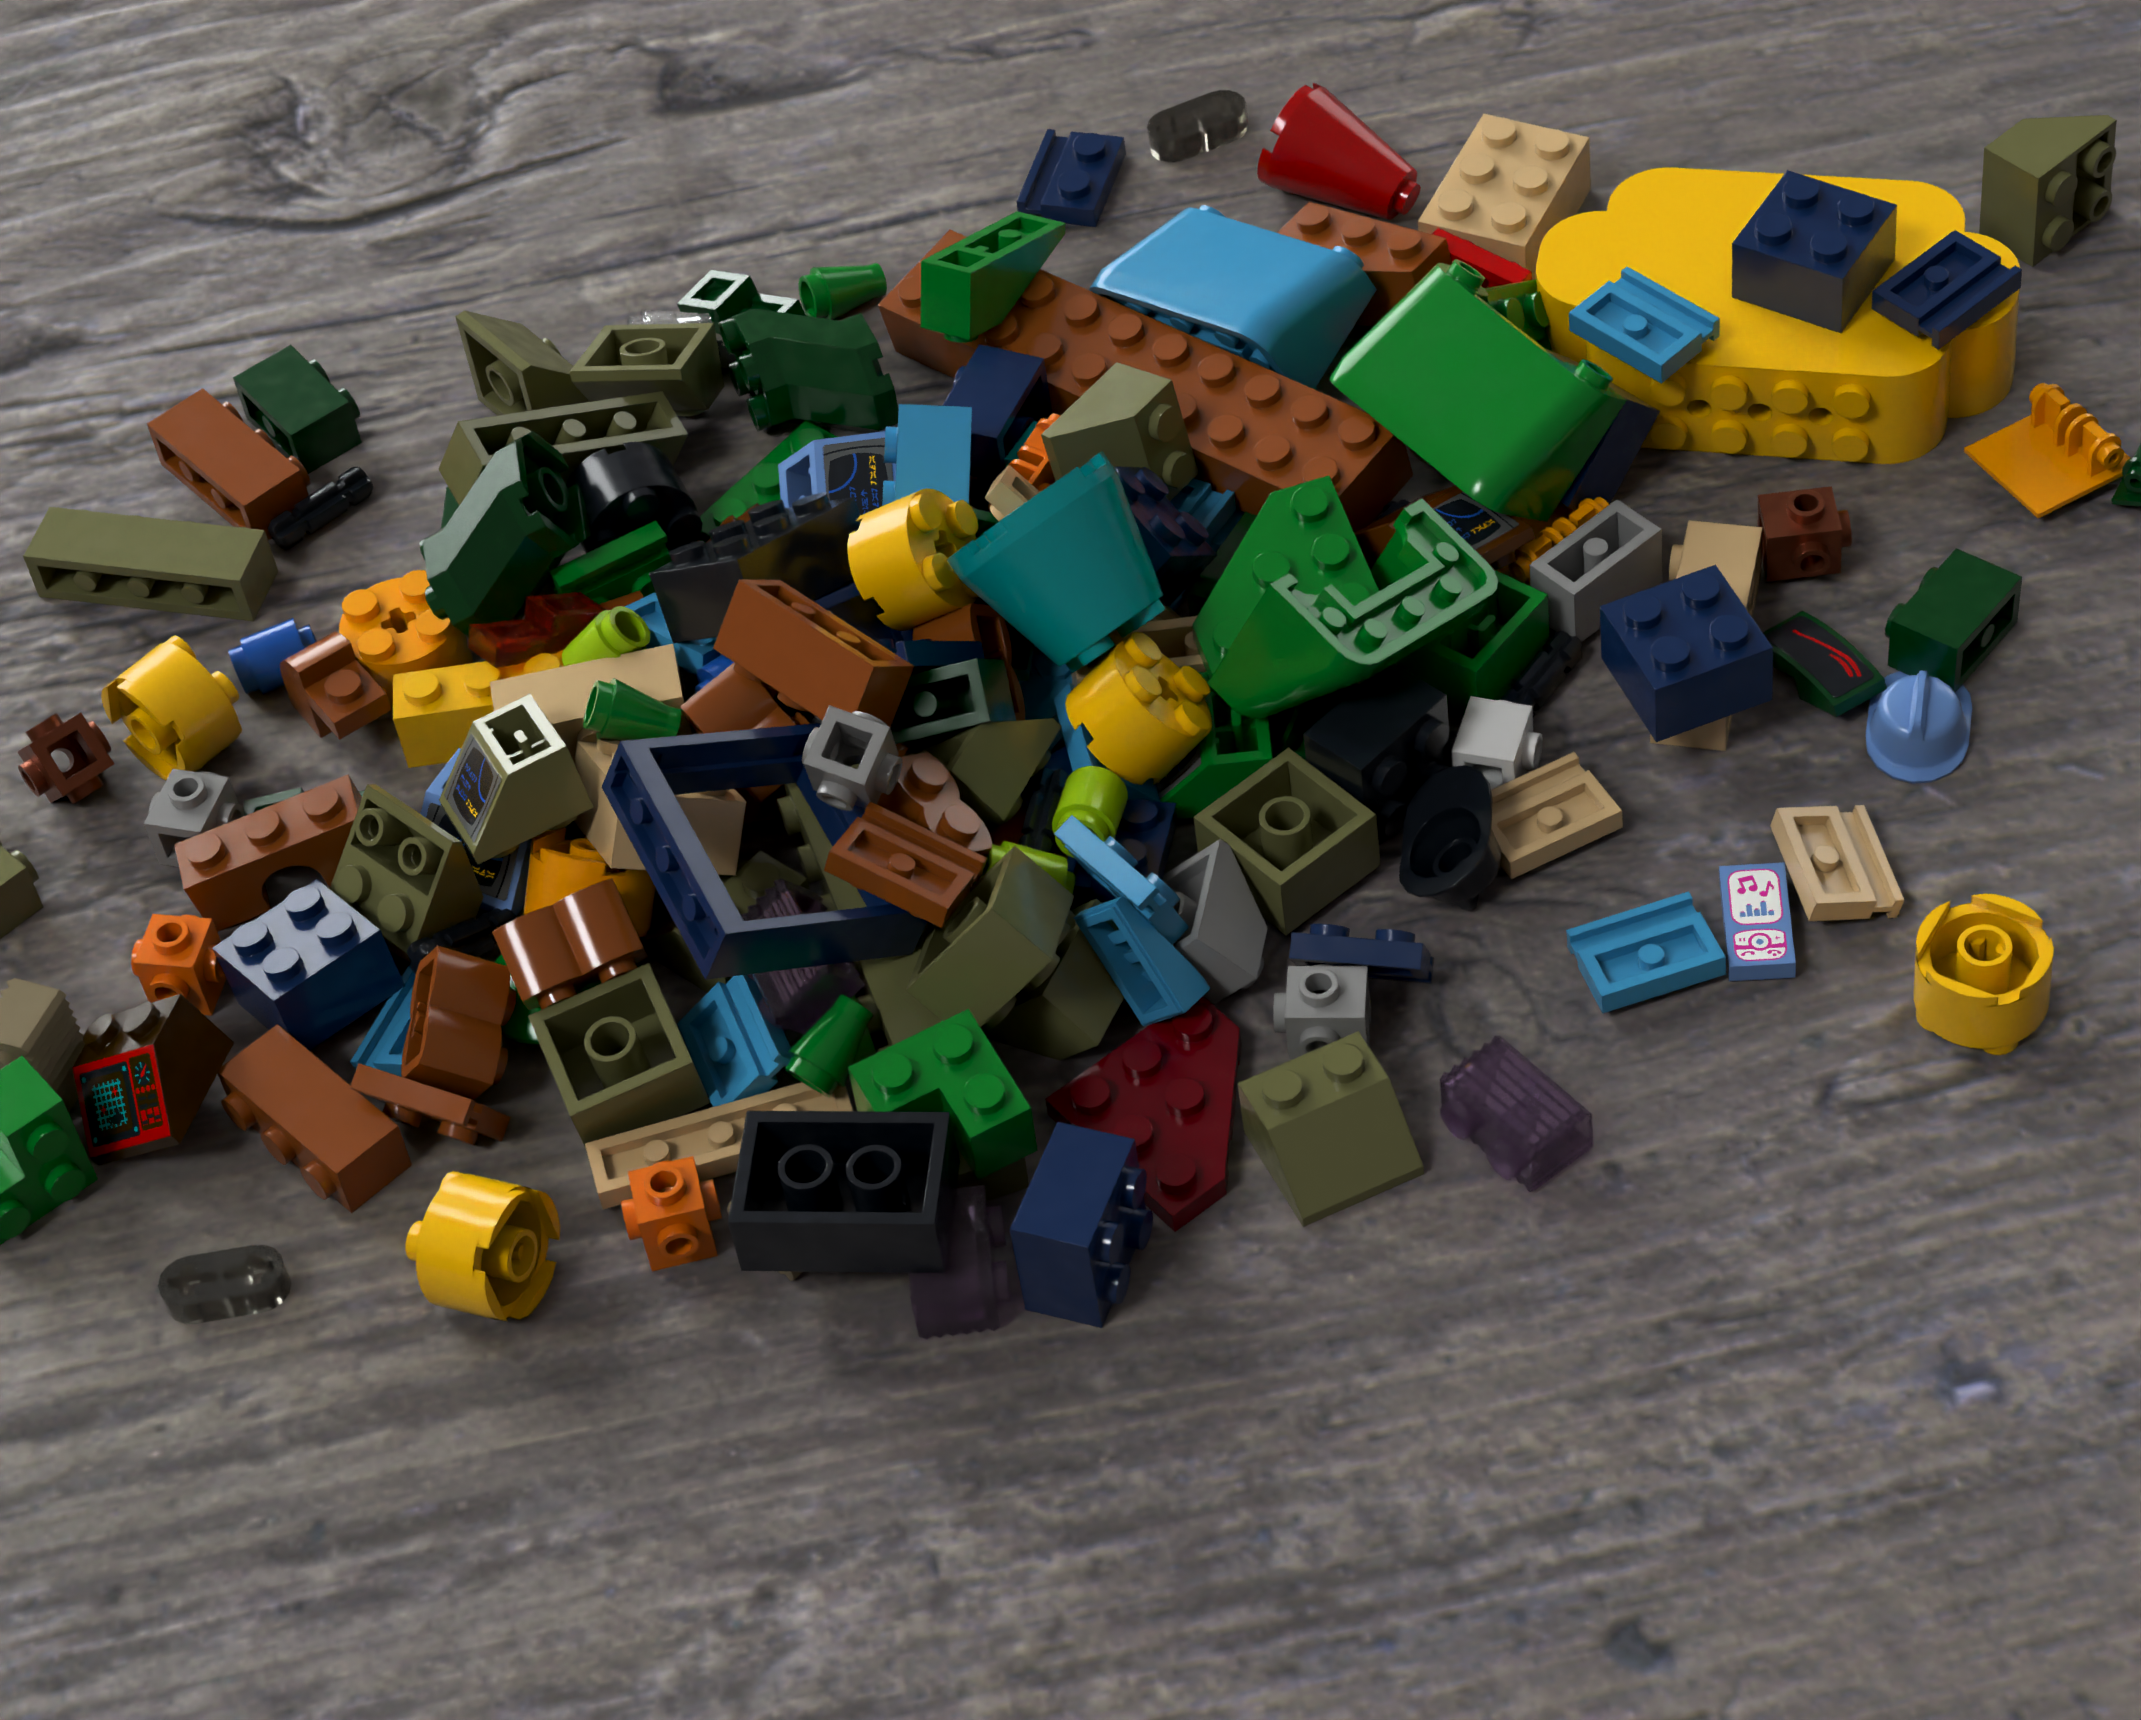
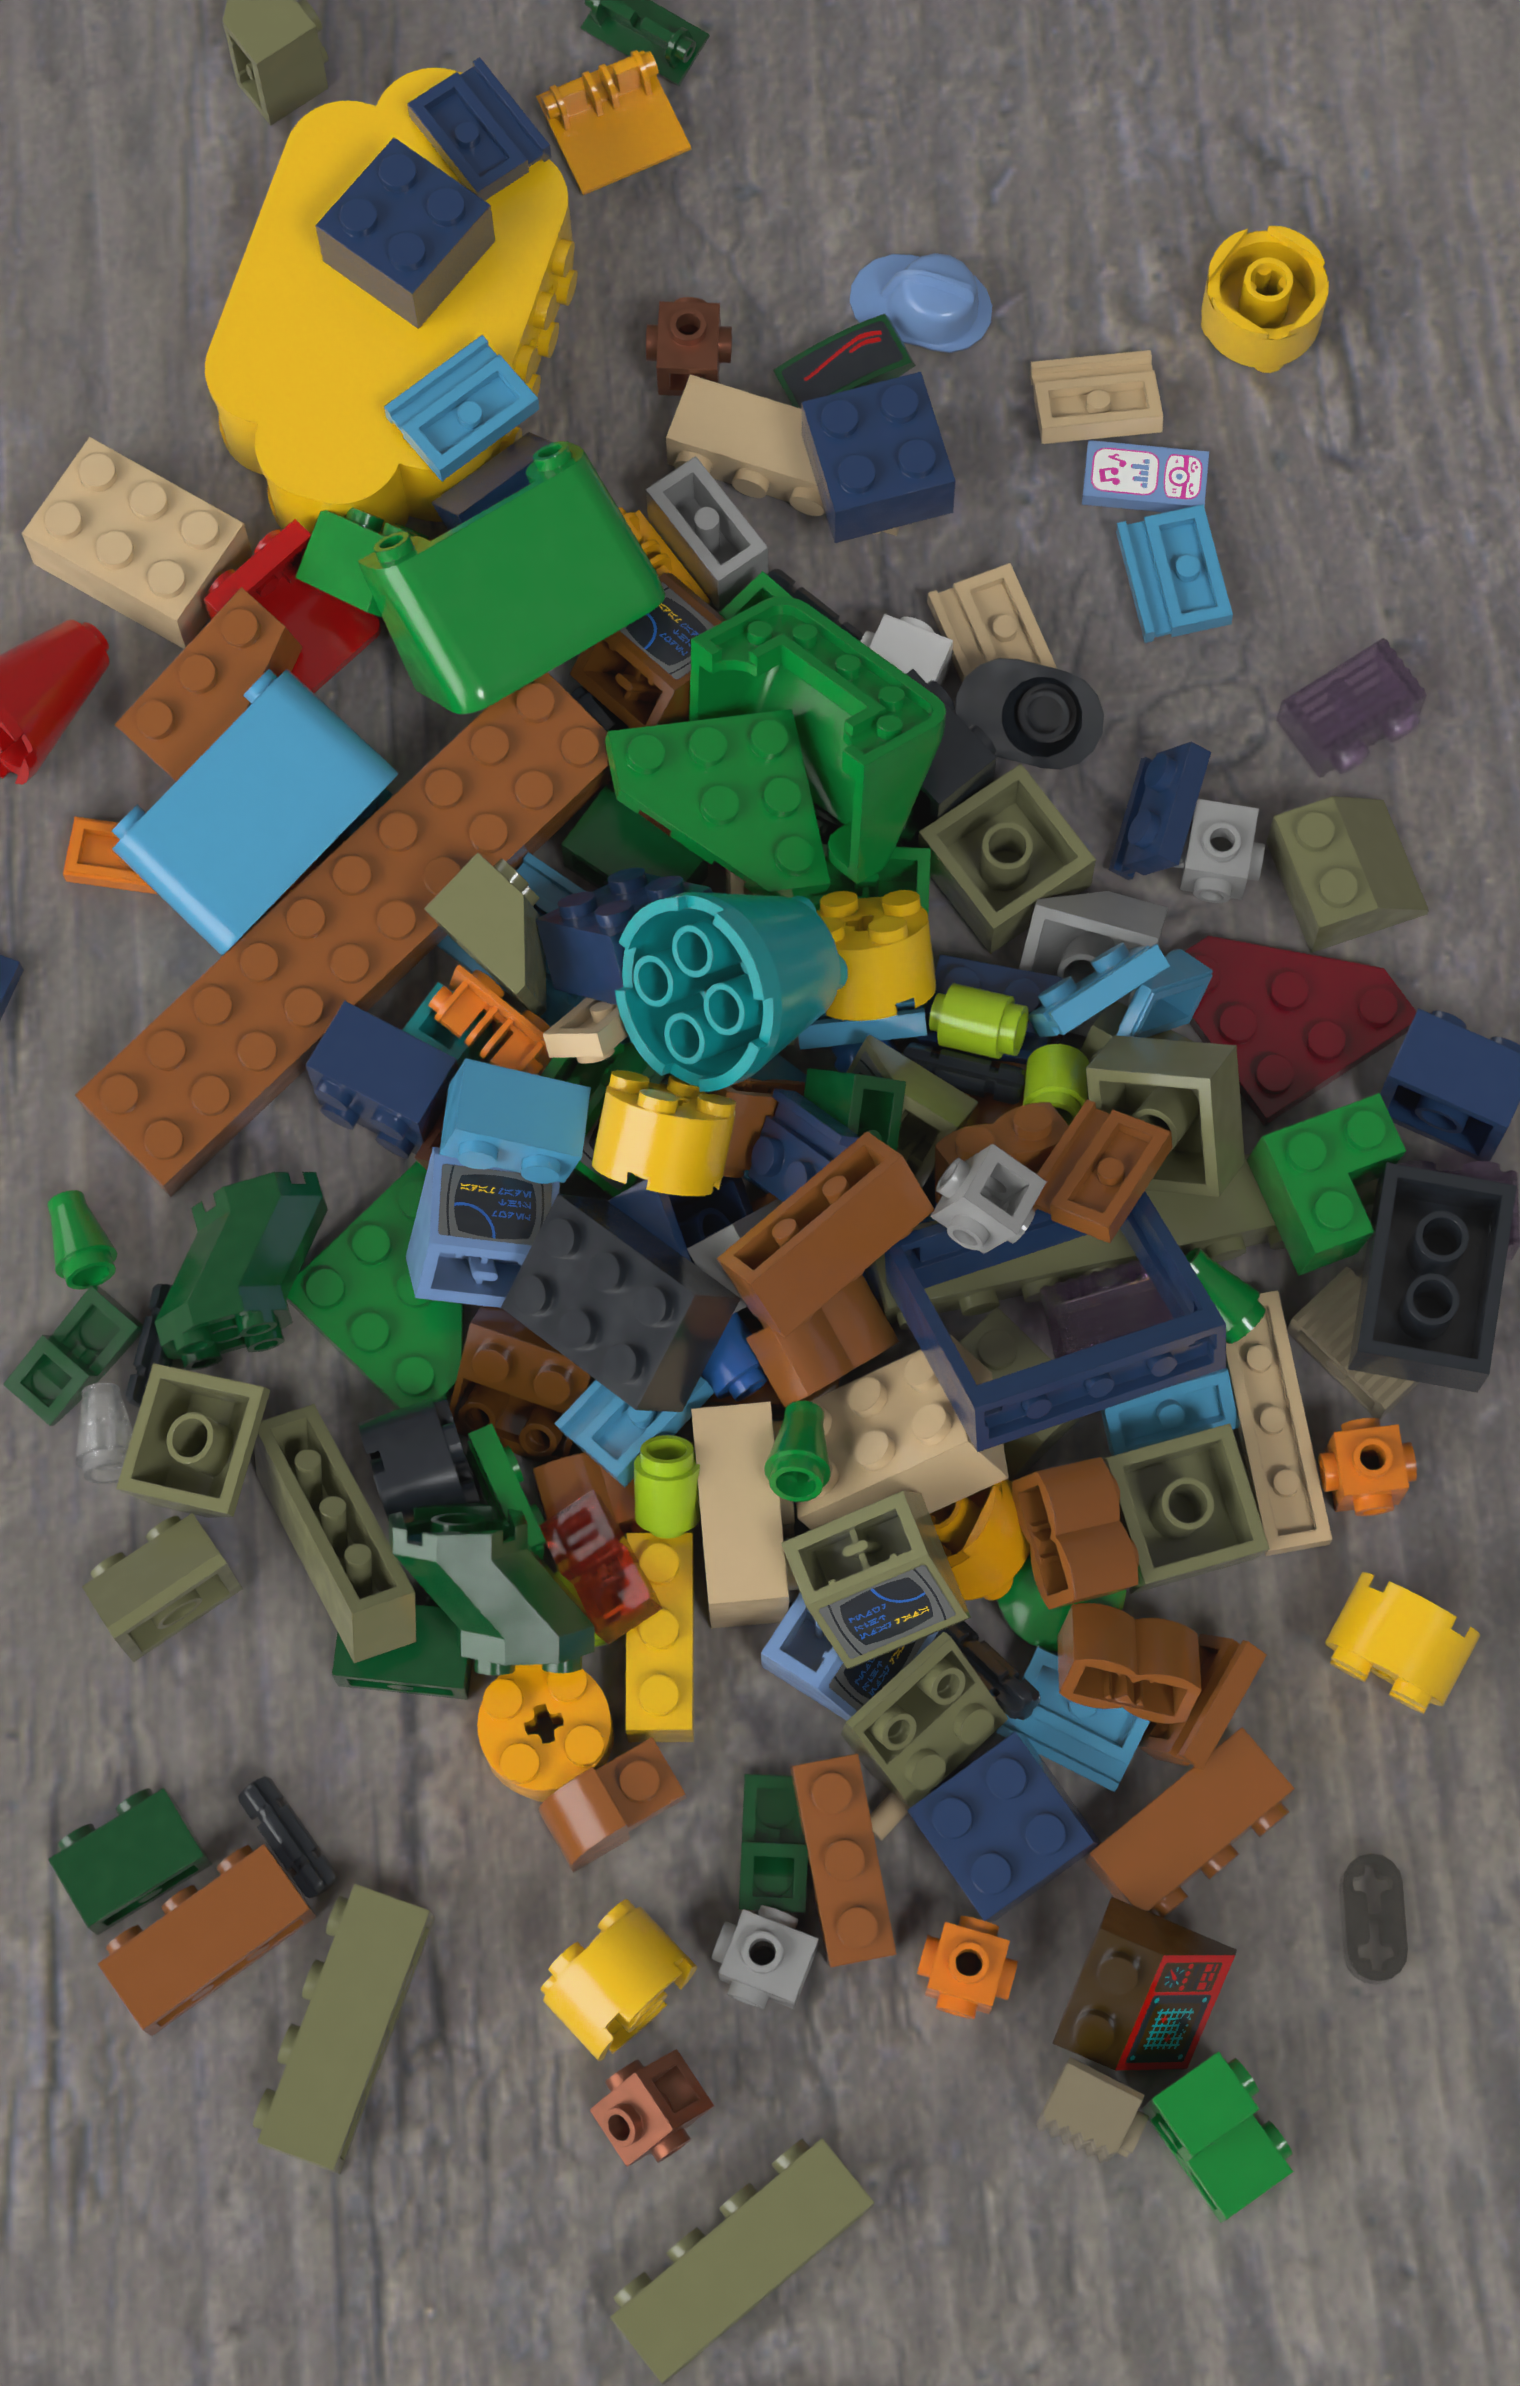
camera: 90 degrees left, 25 degrees up
(261, 653) = (523, 1880): blue brick -> none
(984, 275) = (201, 1041): green slope -> none
(1953, 619) = (823, 241): dark green brick -> none

